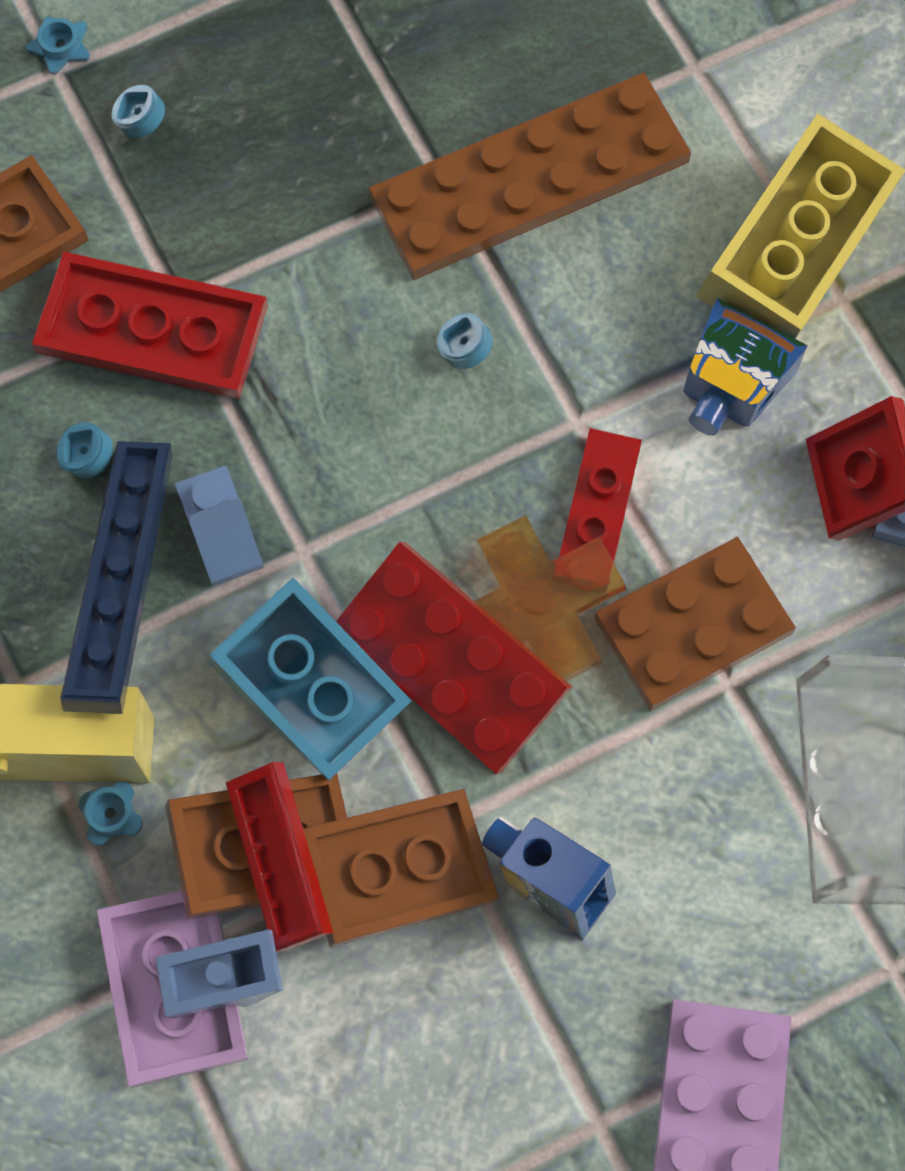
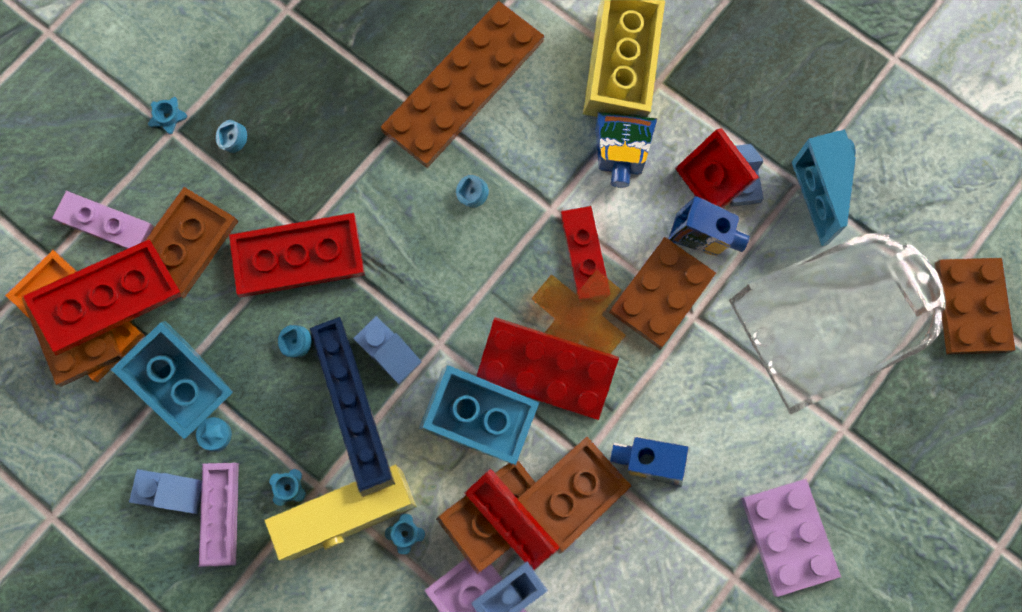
camera: 25 degrees left, 5 degrees up
(812, 550) = (707, 228): none -> blue torso

